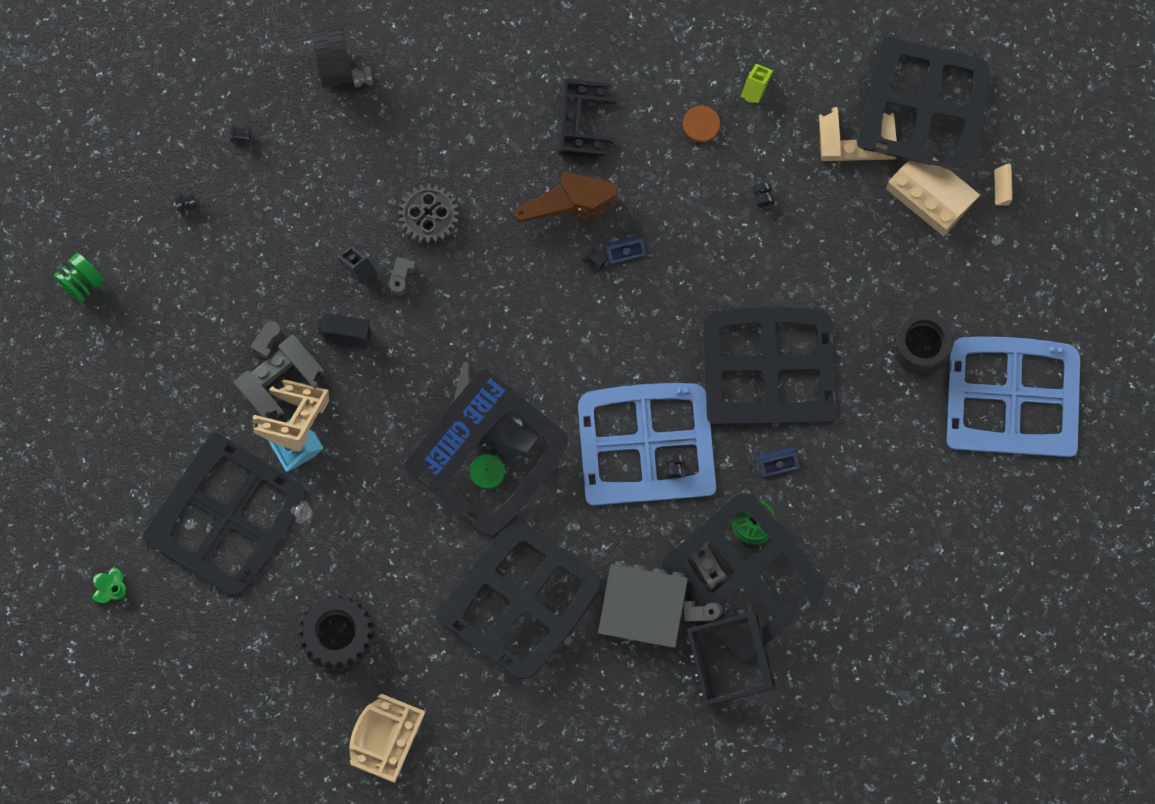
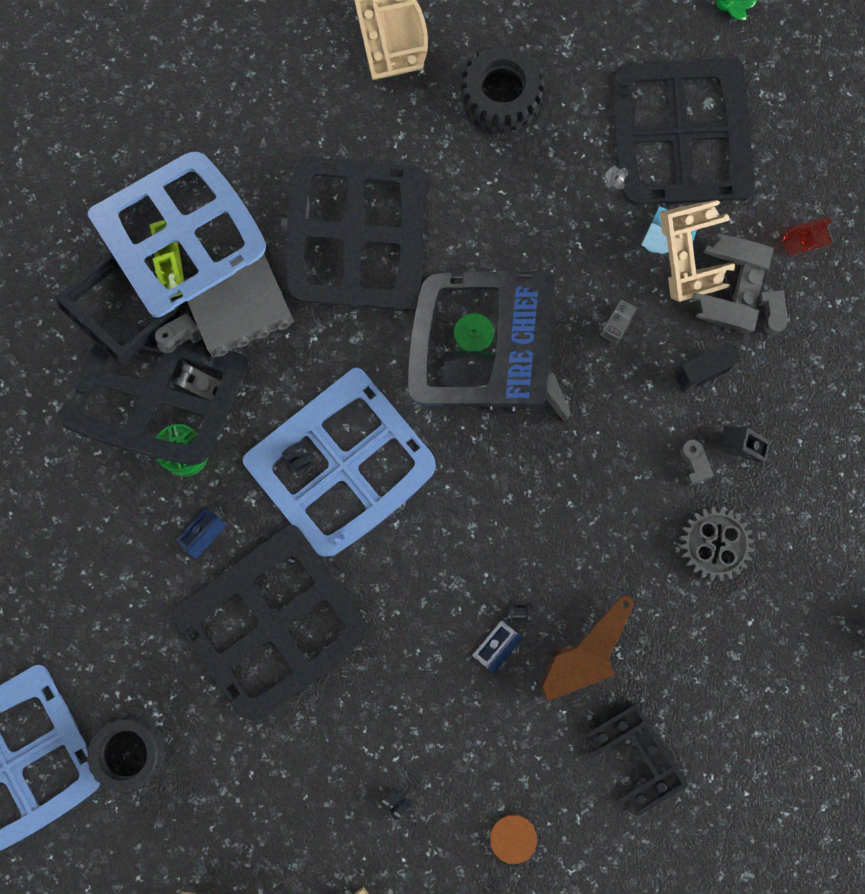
camera: 150 degrees right, 5 degrees up
(200, 375) = (807, 236): none -> clear red panel
(379, 407) = (618, 322): none -> dark grey leg
(648, 685) = (179, 229): none -> medium blue window
(672, 672) = (167, 261): none -> lime slope

